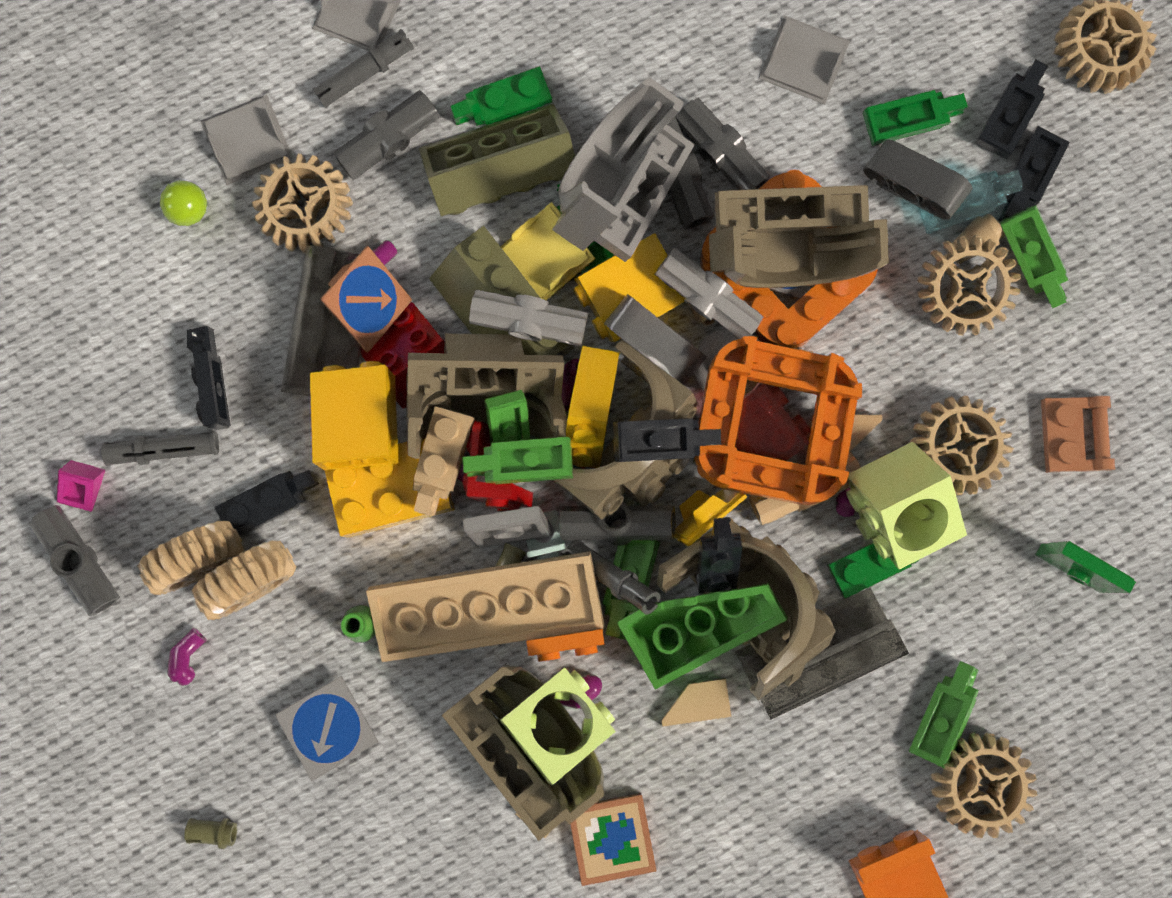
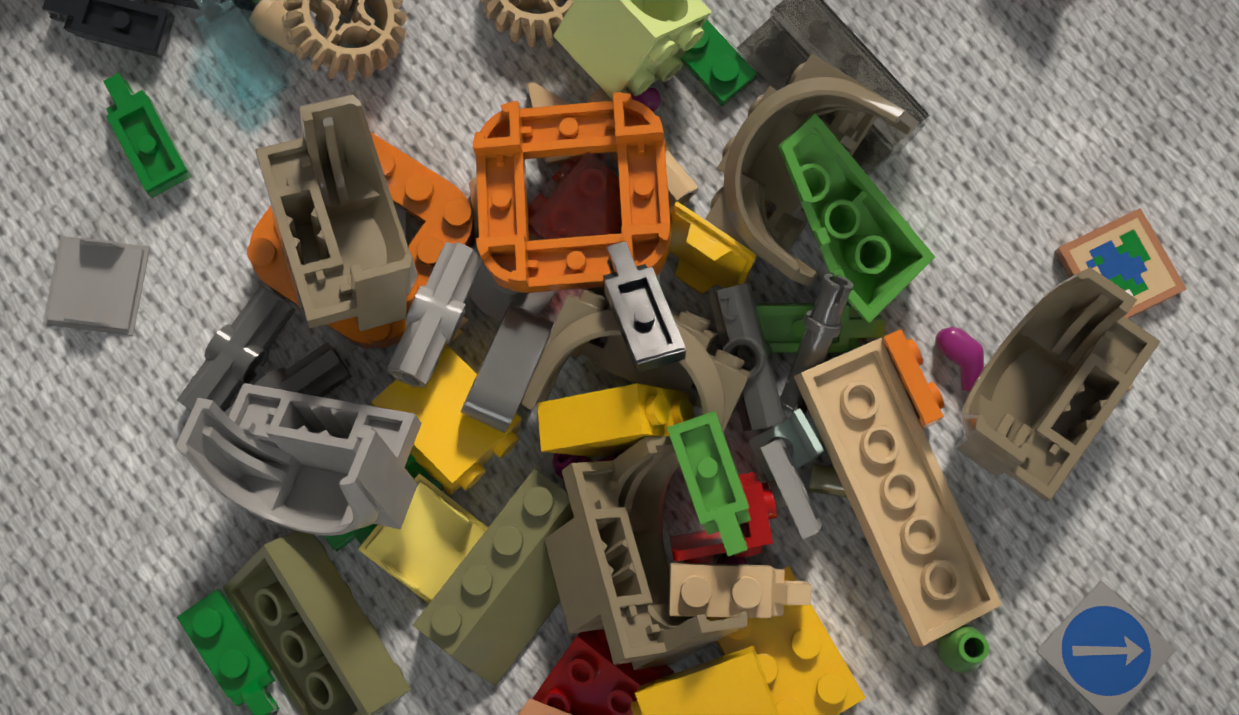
camera: 100 degrees left, 5 degrees down
(508, 417) = (663, 517): bright green hinge -> none
(528, 317) = (523, 527): light grey piece -> none
(595, 726) = (1020, 306): yellowish green brick -> none
(699, 703) = (929, 209): tan tile -> none
(719, 558) = (764, 211): black hinge -> none
(918, 179) = (226, 107): dark grey beam -> none

